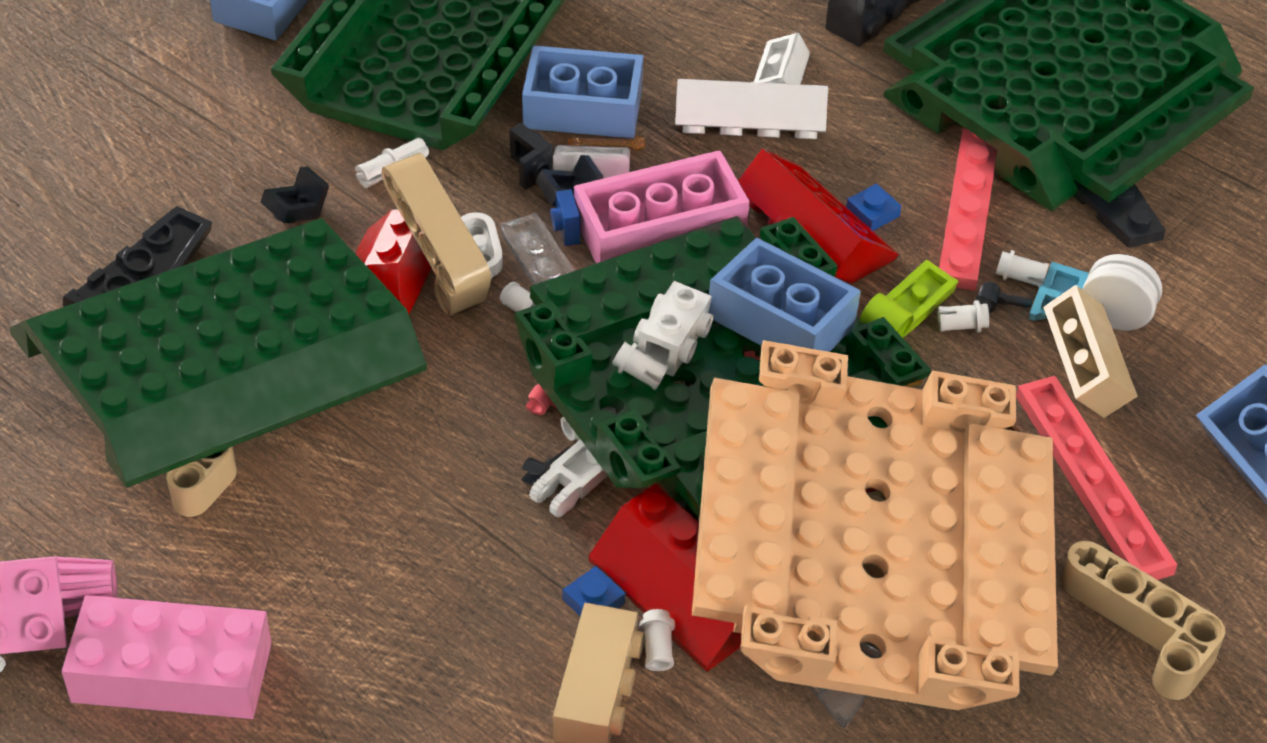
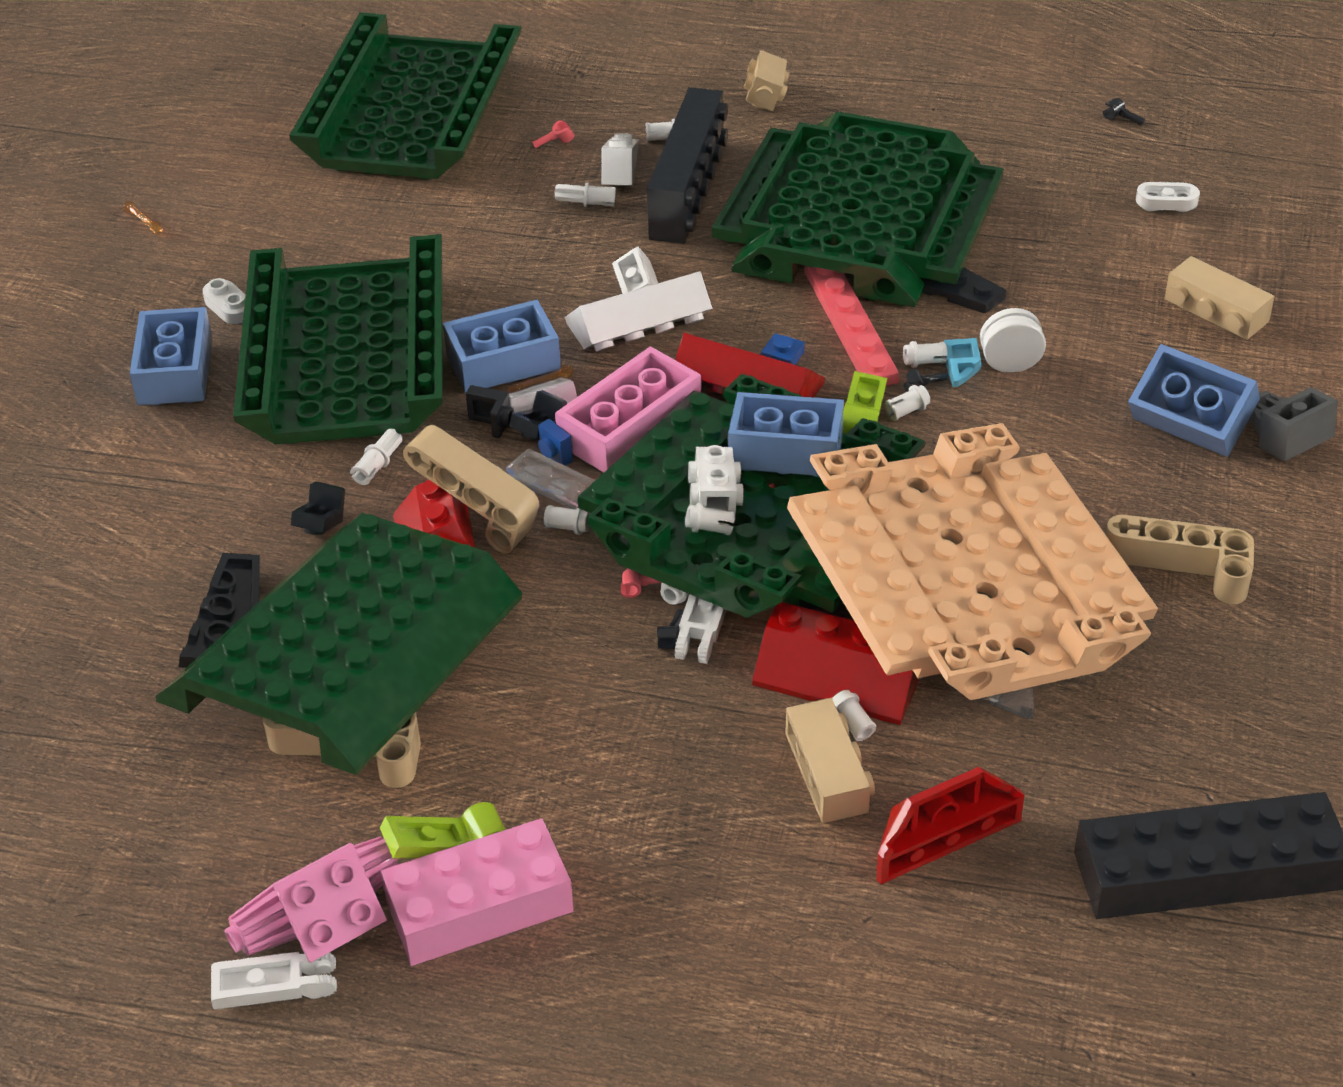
camera: 25 degrees left, 5 degrees down
(160, 580) = (421, 836): none -> lime plate
(593, 588) = (773, 704): blue plate -> none
(1090, 352) = (1019, 389): tan brick -> none
(1095, 478) = (1093, 480): coral plate -> none

